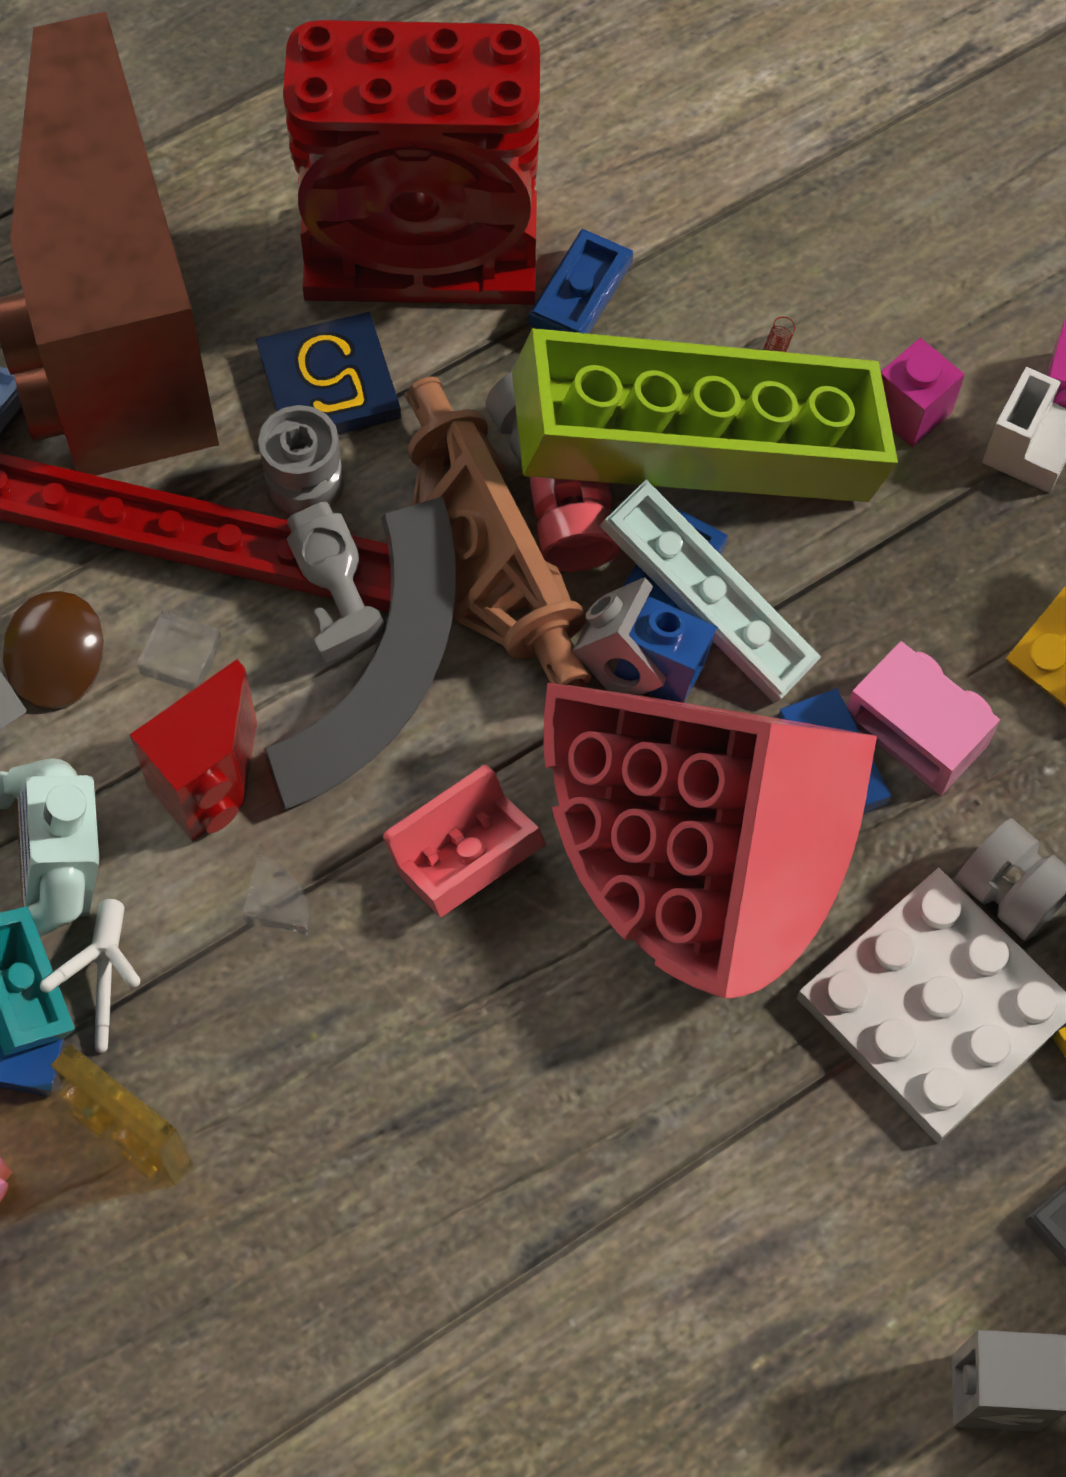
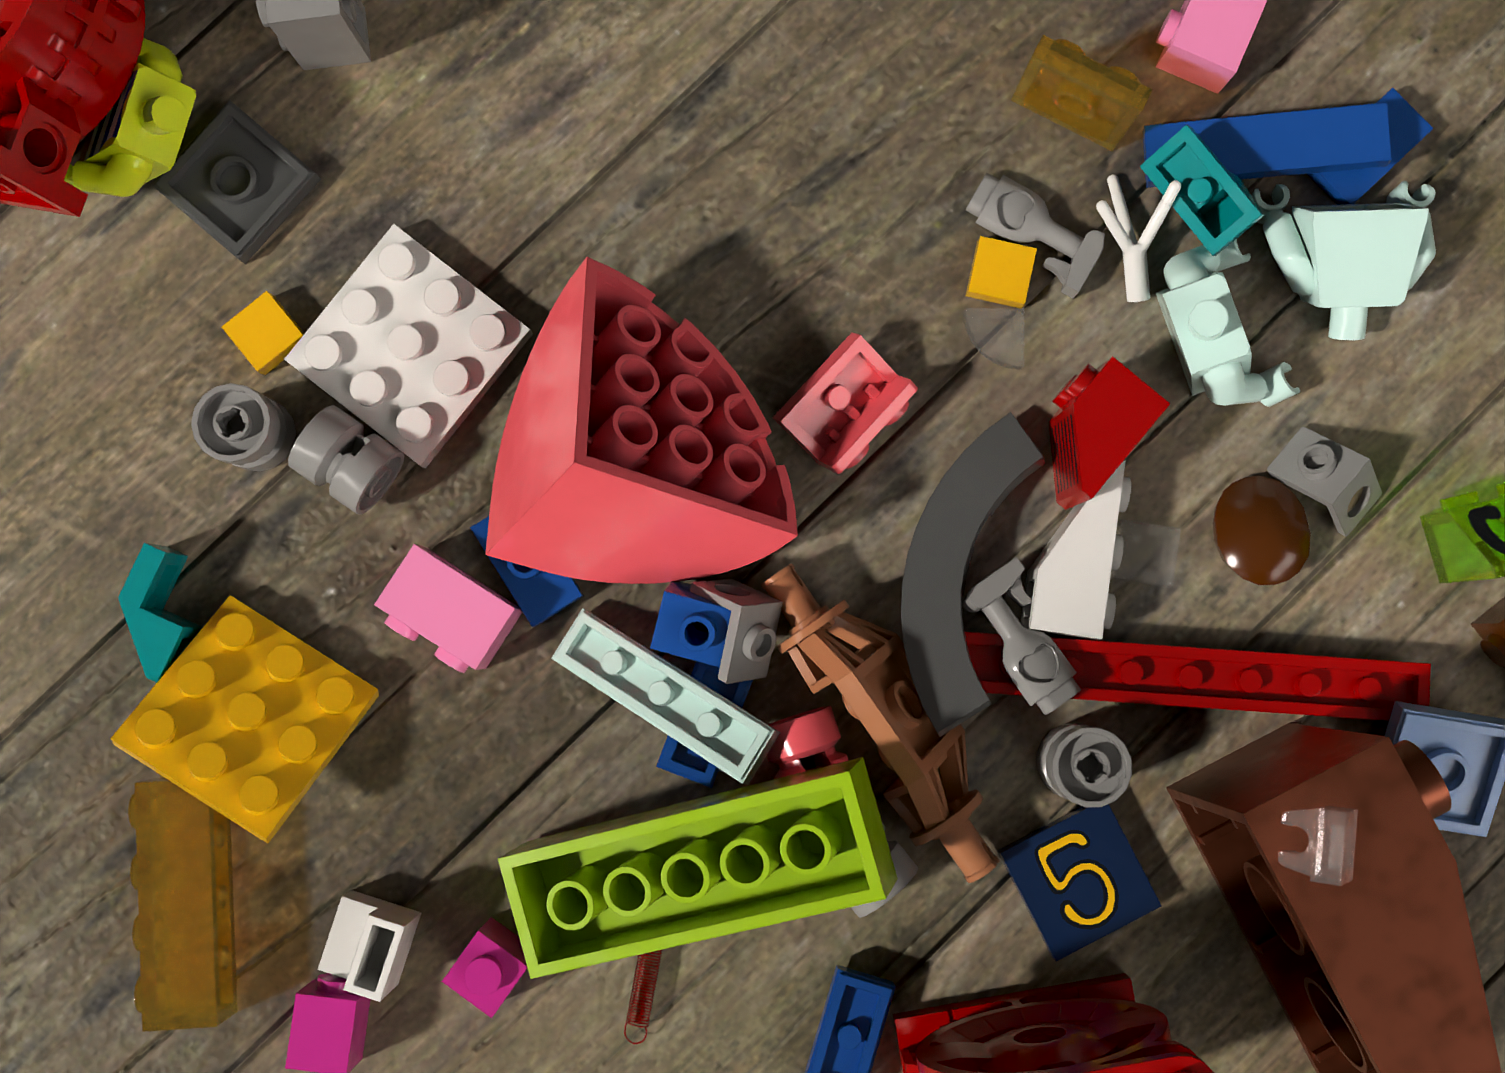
camera: 170 degrees right, 20 degrees up
(124, 261) = (1330, 846): none -> clear tile
(215, 1018) = (1023, 217): none -> light grey piece
(256, 962) = (1001, 272): none -> yellow tile
(267, 627) = (1075, 567): none -> white slope

